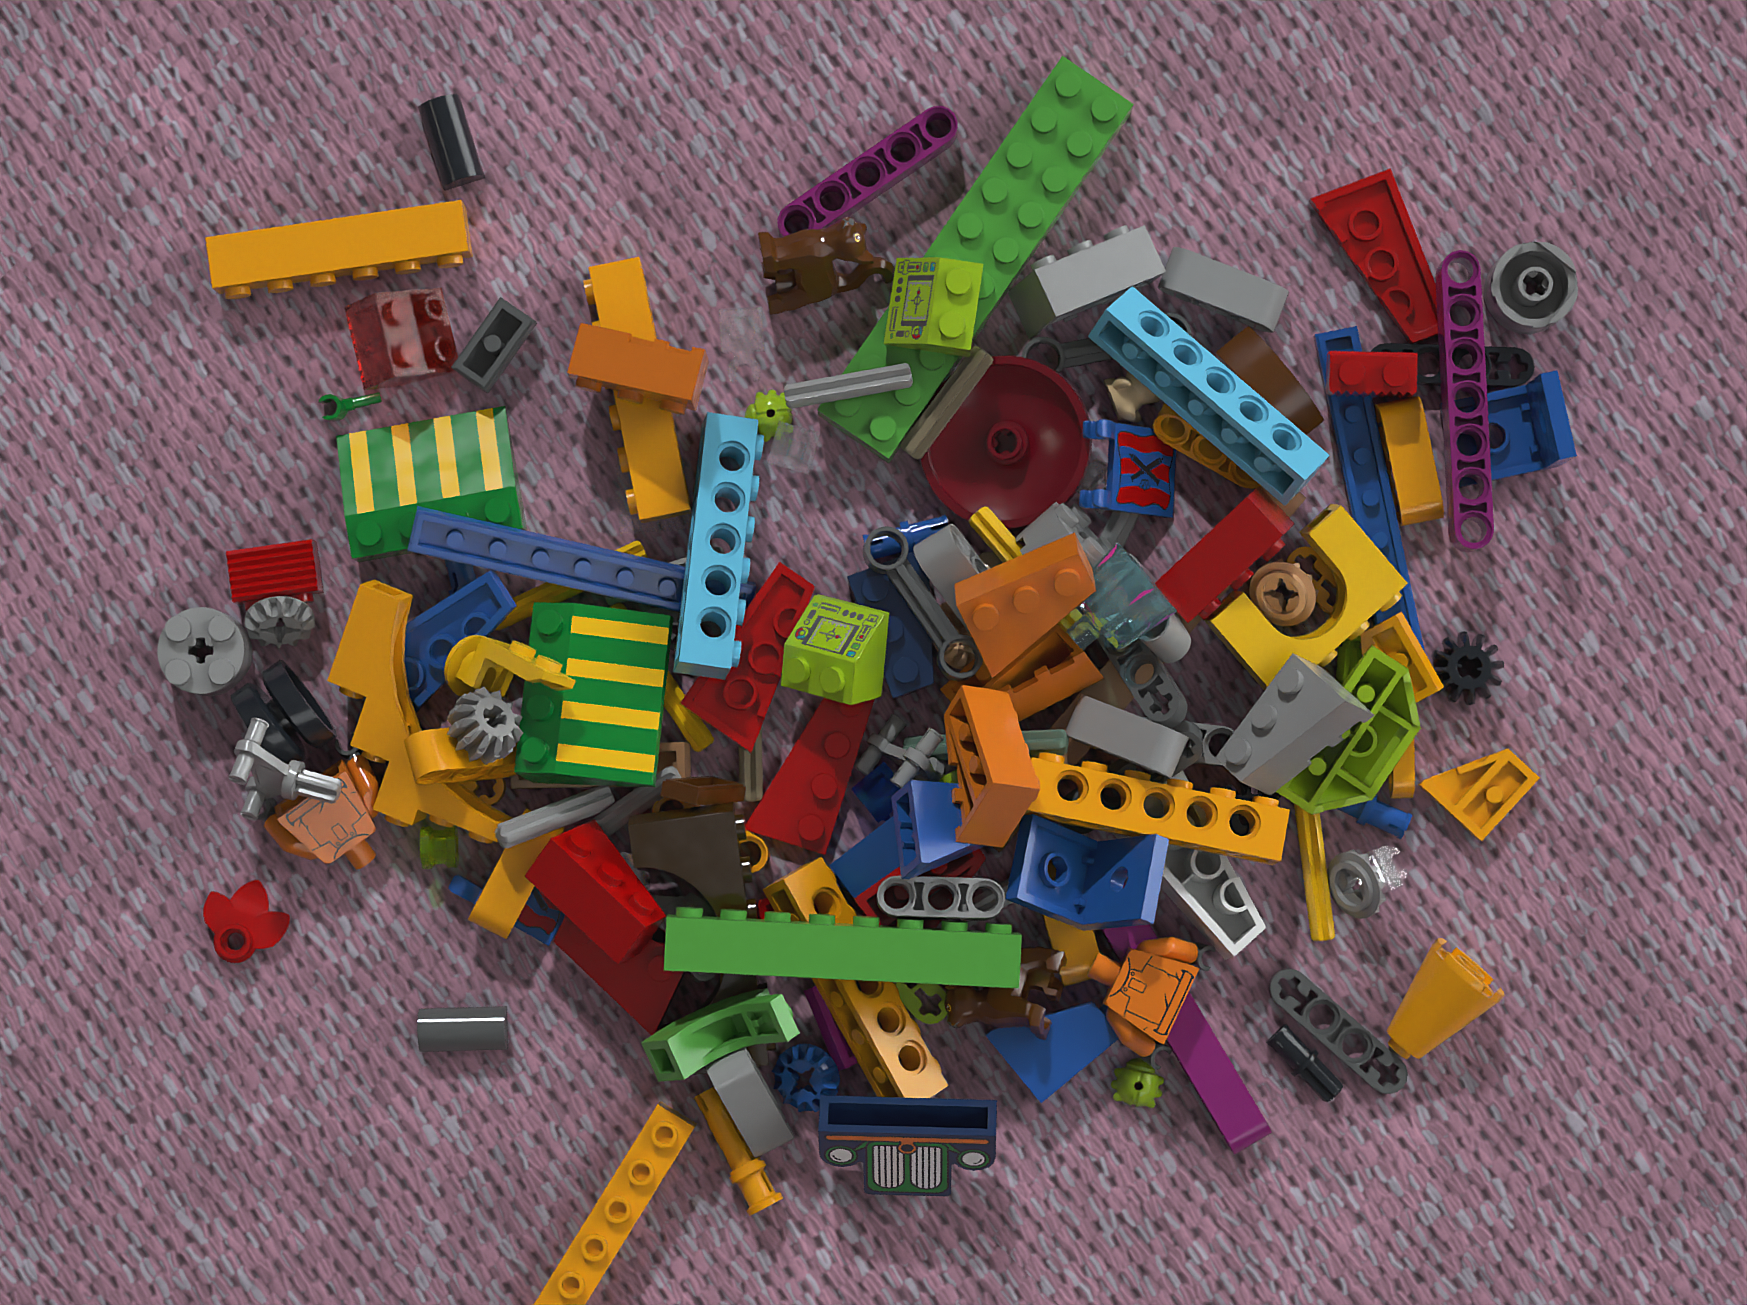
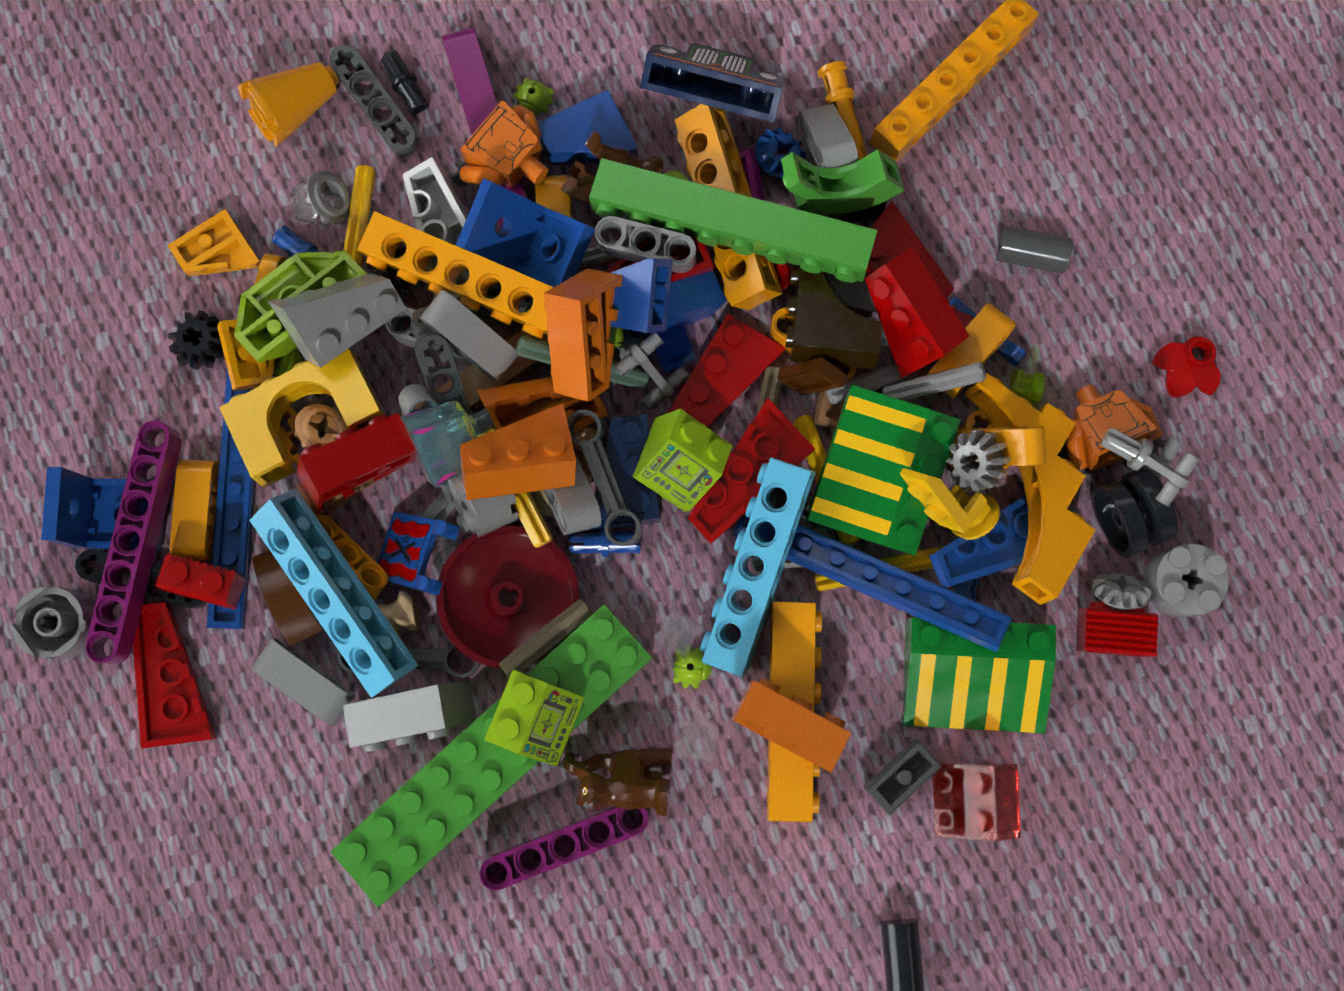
camera: 170 degrees left, 5 degrees down
(338, 248) = (1015, 889): light orange brick -> none
(348, 404) = (1030, 756): green hand -> none
(848, 385) = (622, 668): light grey axle -> none

